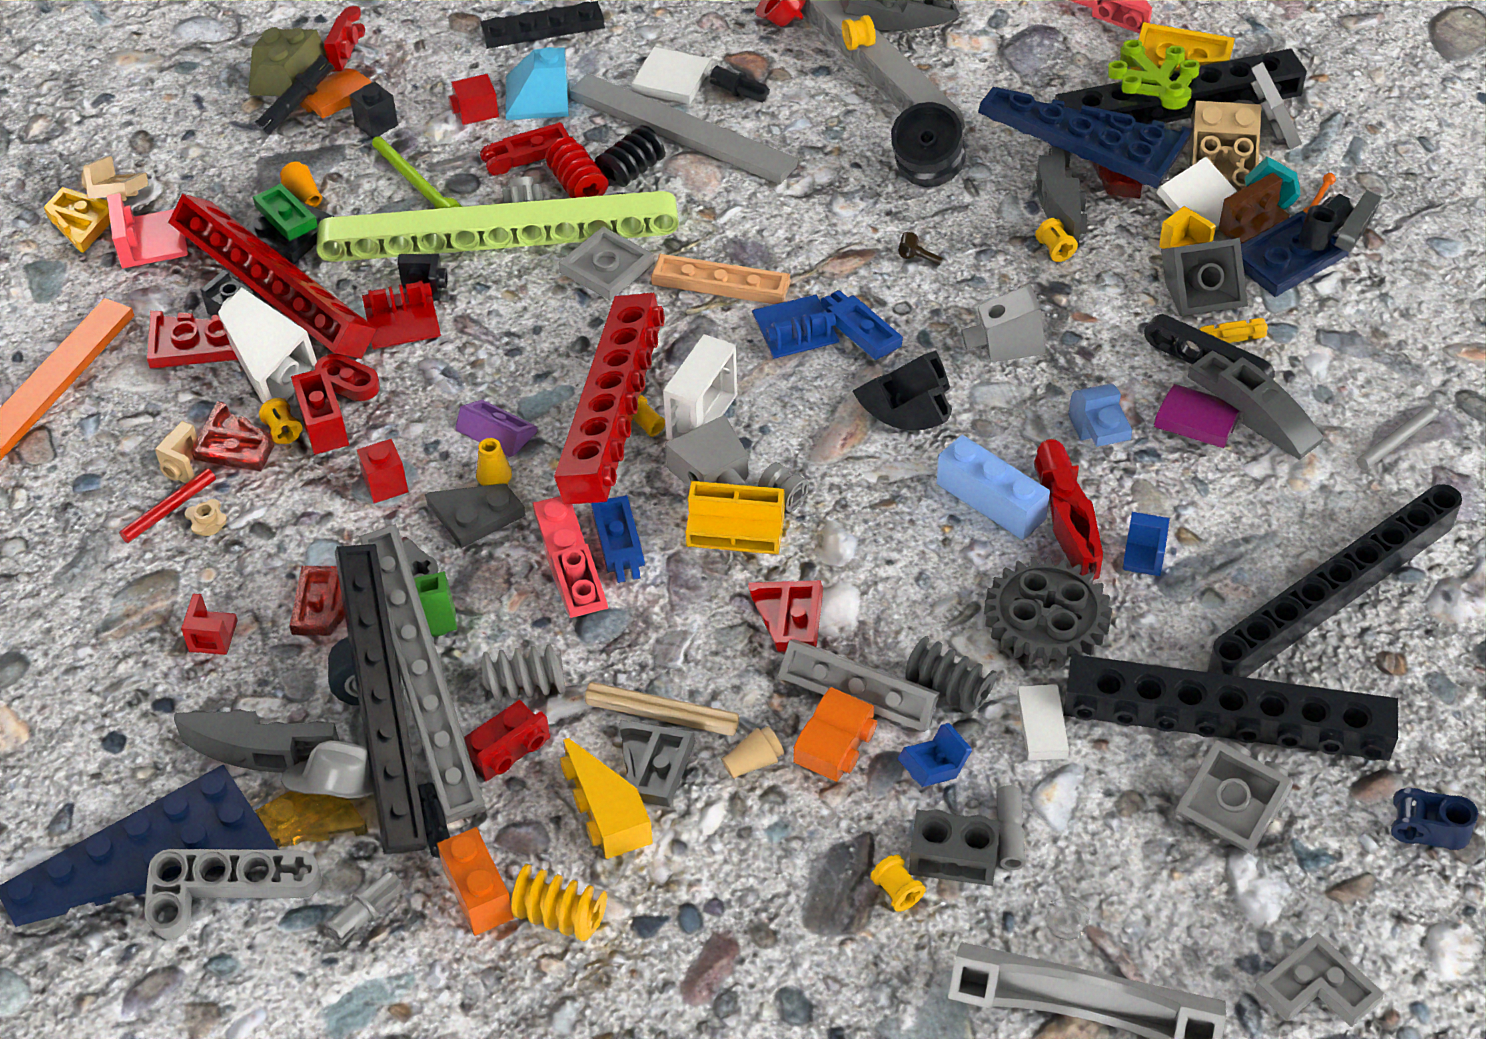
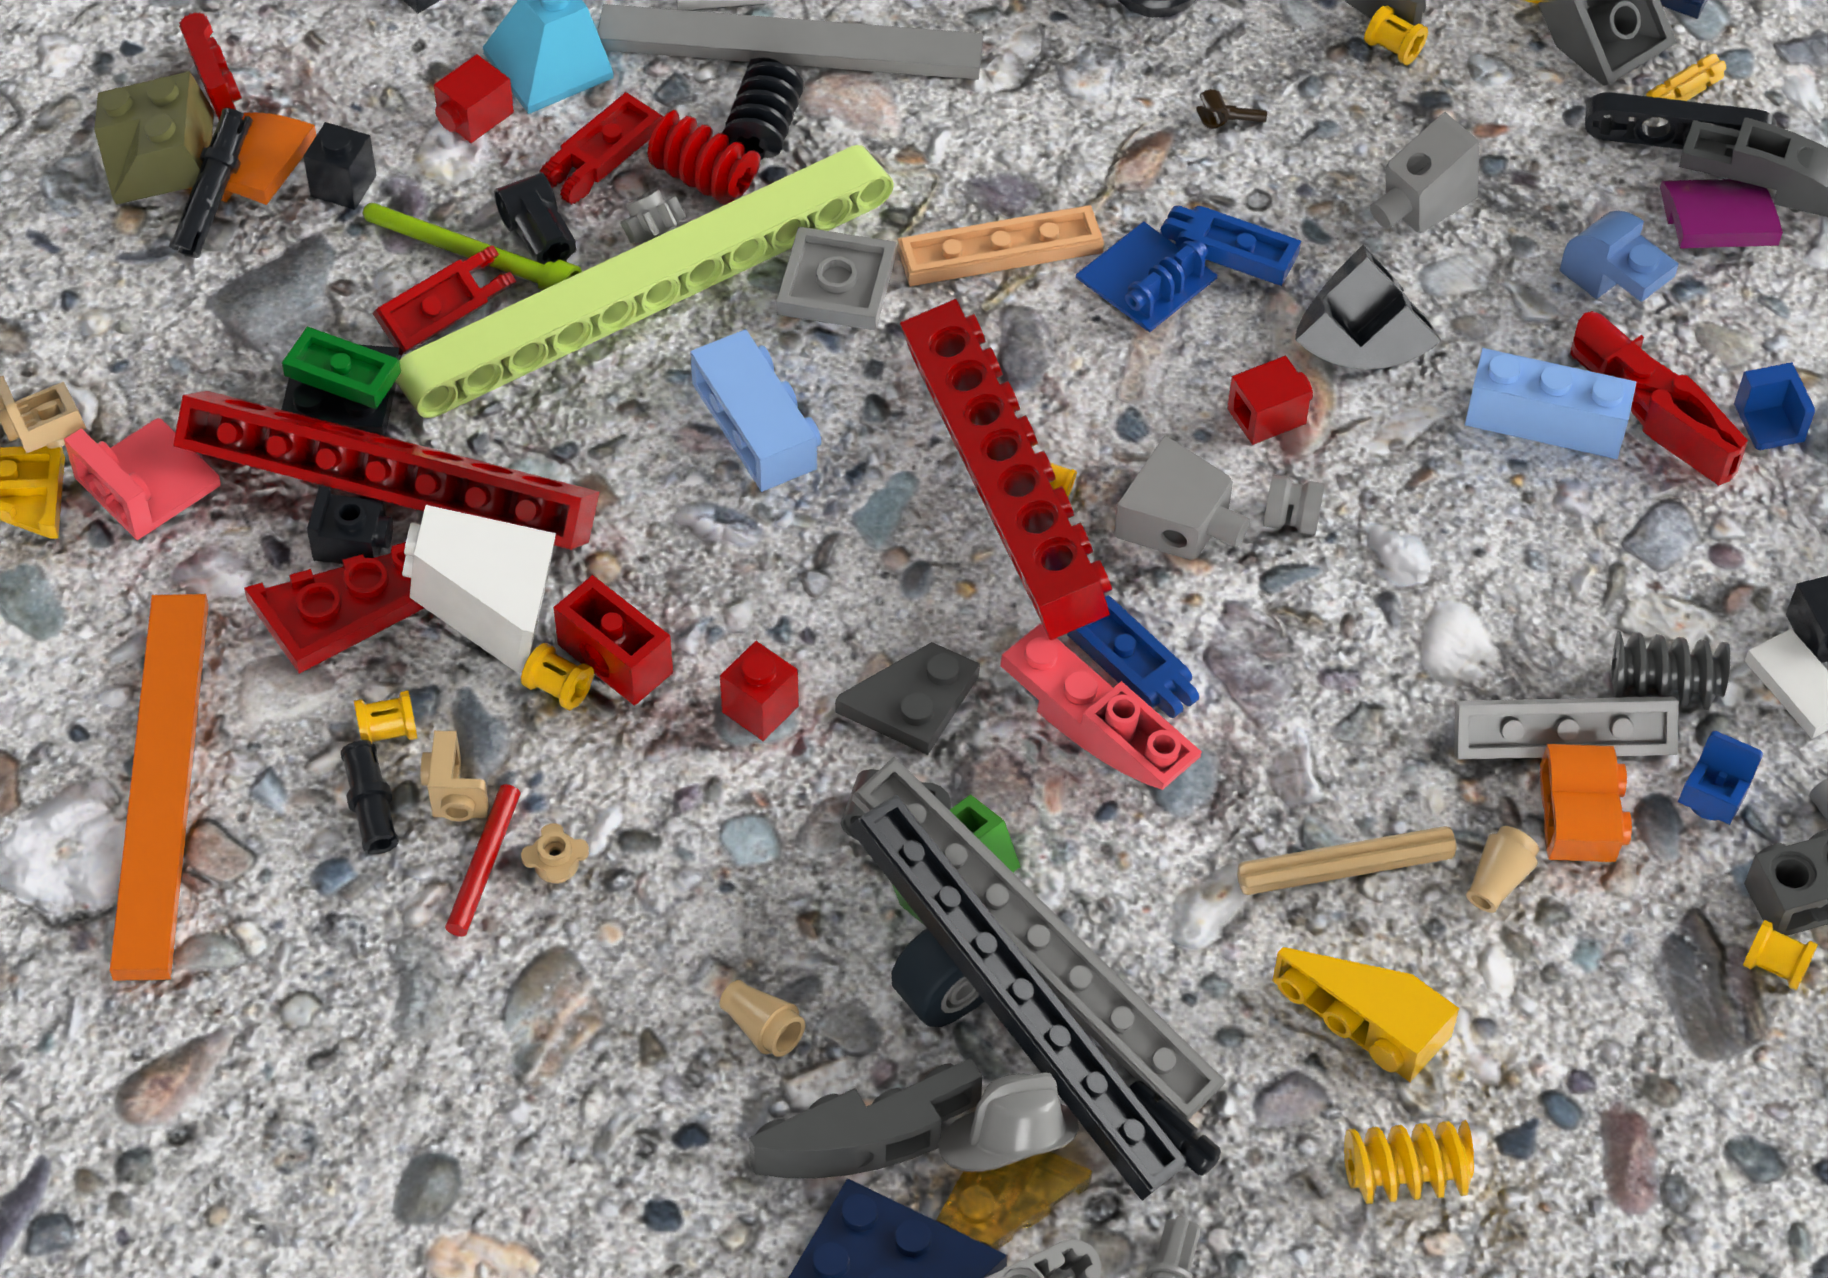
camera: 30 degrees left, 5 degrees up
(131, 446) = (369, 797): none -> black pin
(170, 407) = (386, 718): none -> yellow bush
(207, 630) = (683, 1006): red panel -> none
(232, 441) = (511, 731): clear red wing -> none
(247, 656) = (765, 1019): none -> tan cone
(300, 183) = (306, 307): light orange cone -> none
(317, 602) = (810, 895): clear red wing -> none
(350, 377) = (609, 566): red plate -> none
(376, 197) = (439, 301): none -> red hinge
(401, 316) = (609, 457): red hinge -> none
(423, 268) = (596, 383): black bracket -> none
(460, 170) = (533, 212): none -> black piece
(475, 881) = (1291, 1180): orange brick -> none
(484, 420) = (852, 570): medium lavender slope -> none
(492, 463) = (901, 624): yellow cone -> none
(502, 317) = (755, 409): none -> light blue brick
(506, 739) = (1185, 978): red bracket -> none
(522, 673) = (1148, 884): light grey piece -> none
(655, 759) = (1386, 926): dark grey wing -> none
(701, 387) = (1112, 414): white window -> none
(735, 517) = (1265, 570): yellow piece -> none
(789, 610) = (1414, 668): wing -> none
(815, 421) = (1269, 399): none -> red brick
(1047, 611) = (1719, 540): dark grey gear -> none

